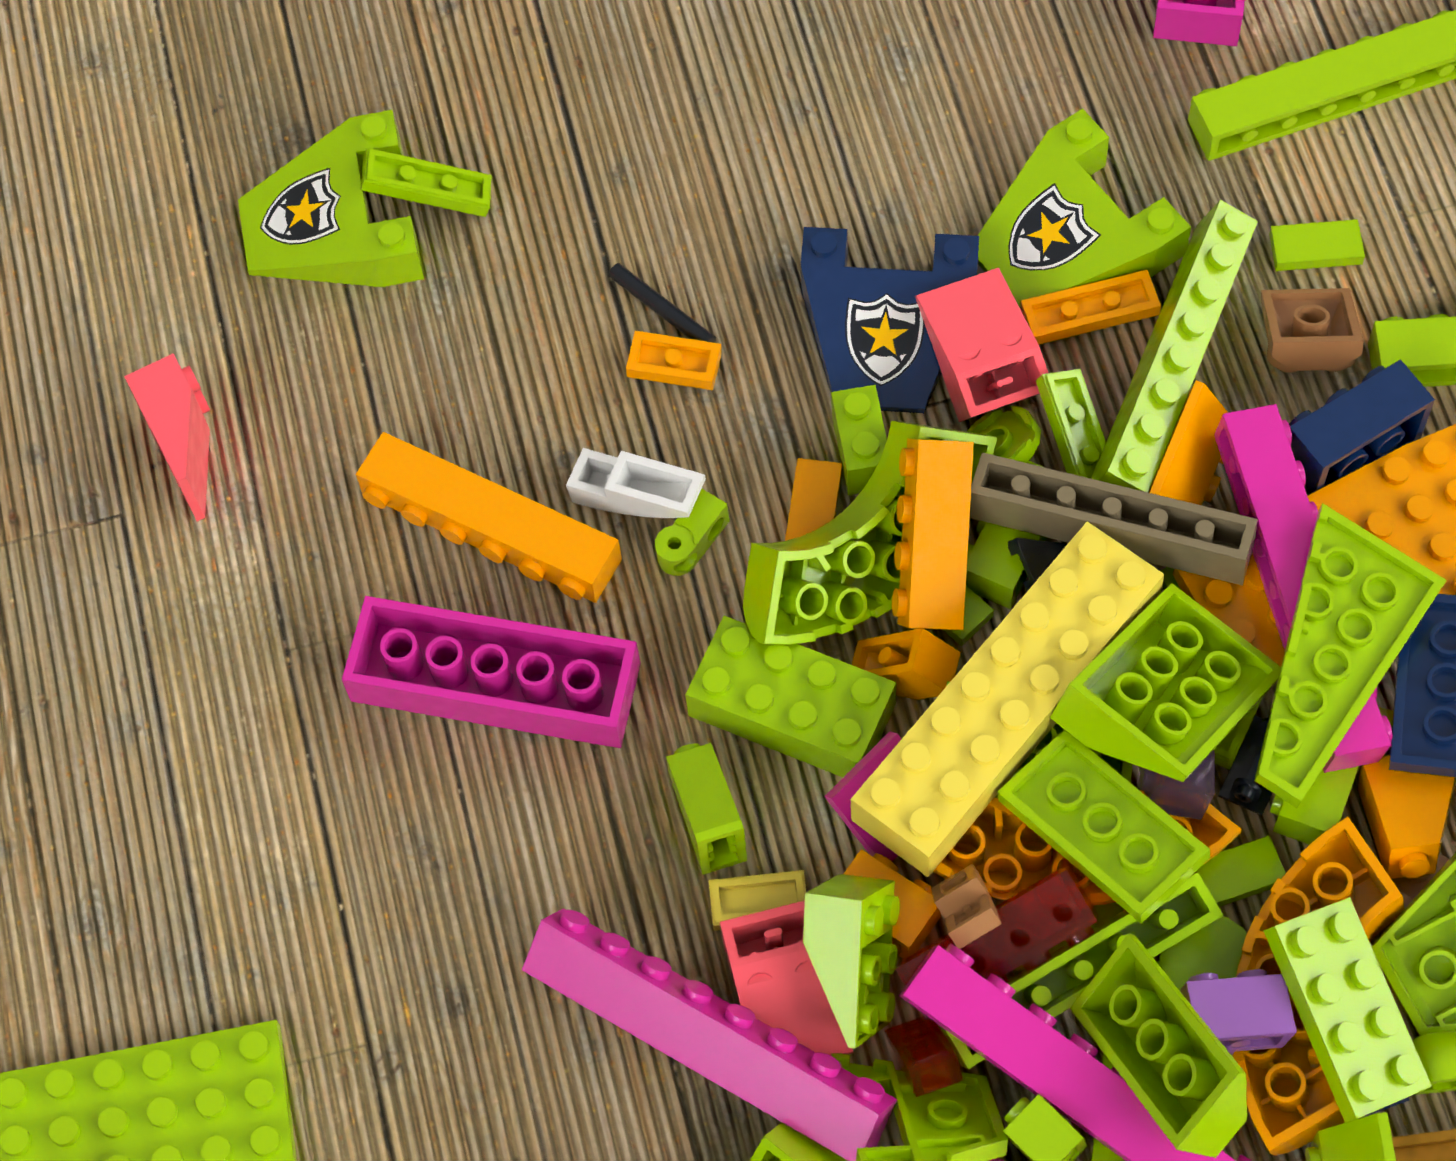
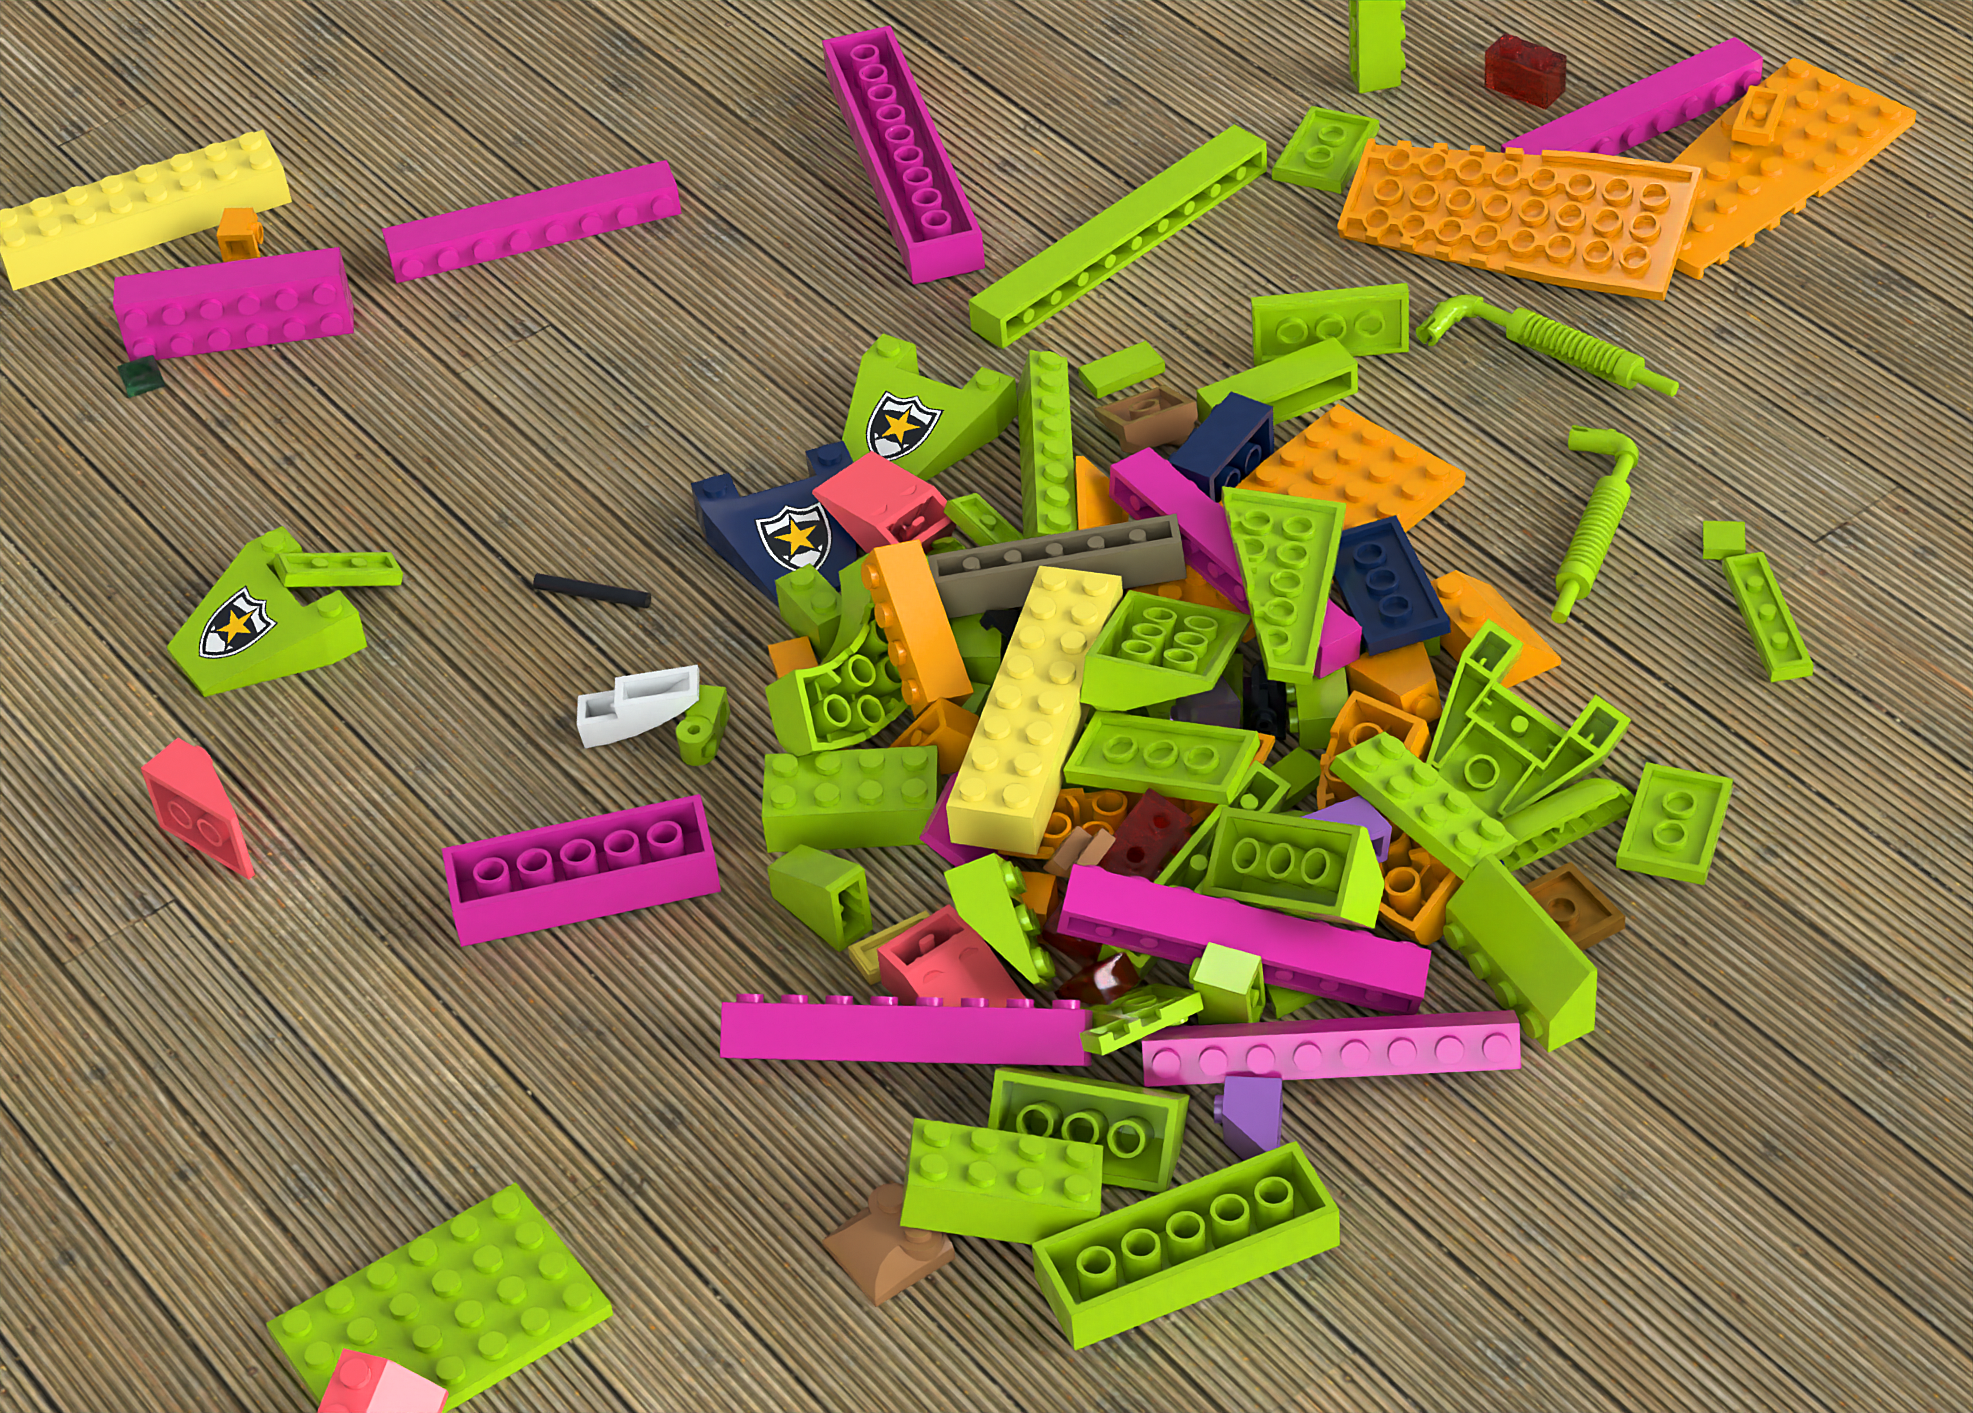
camera: 25 degrees left, 20 degrees down
(489, 518) = (518, 774): light orange brick -> none
(674, 360) = (623, 618): light orange plate -> none
(1091, 307) = (968, 461): light orange plate -> none

